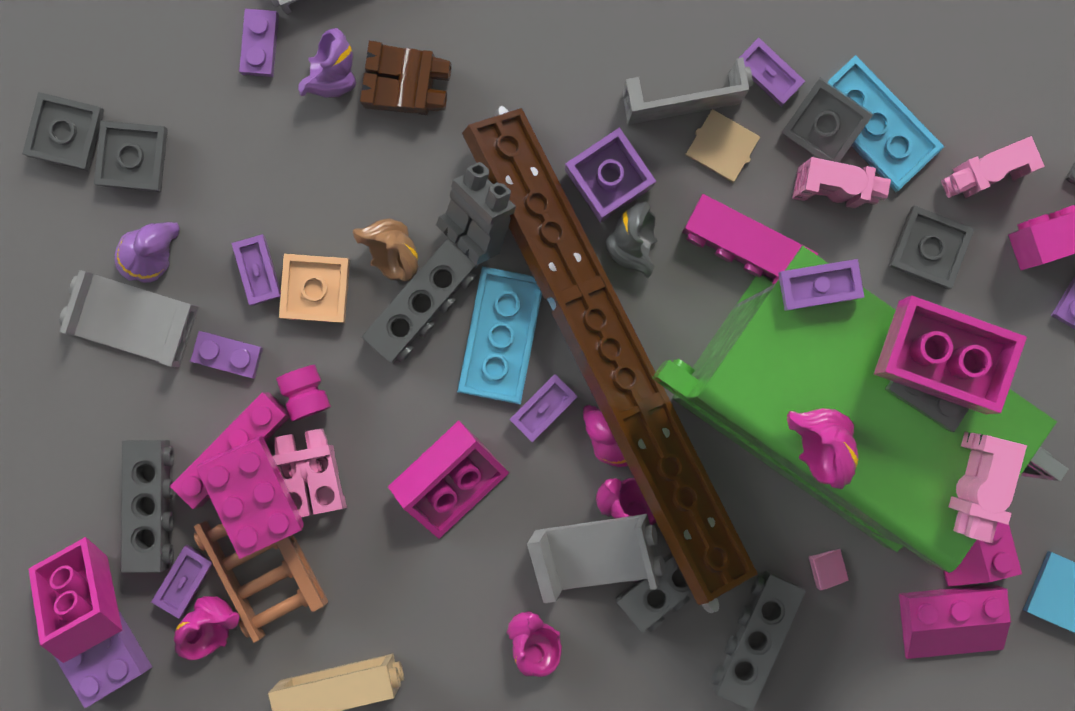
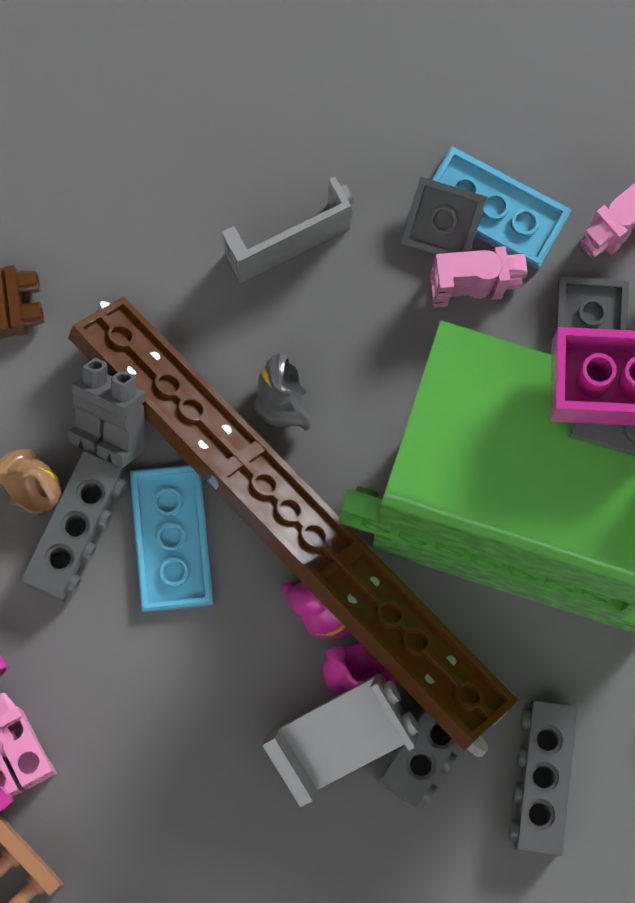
camera: 20 degrees left, 10 degrees down
(448, 480) = (158, 707): dark pink slope -> none
(534, 645) = (304, 857): dark pink hair -> none
(543, 407) = (238, 599): medium lavender plate -> none
(609, 175) = (235, 336): medium lavender brick -> none
(722, 145) = (345, 275): tan piece -> none
(740, 238) = (379, 360): dark pink brick -> none
(771, 72) = (372, 187): medium lavender plate -> none
(821, 284) = (470, 351): medium lavender plate -> none
(827, 445) = (526, 506): dark pink hair -> none
(828, 569) = (595, 679): bright pink slope -> none

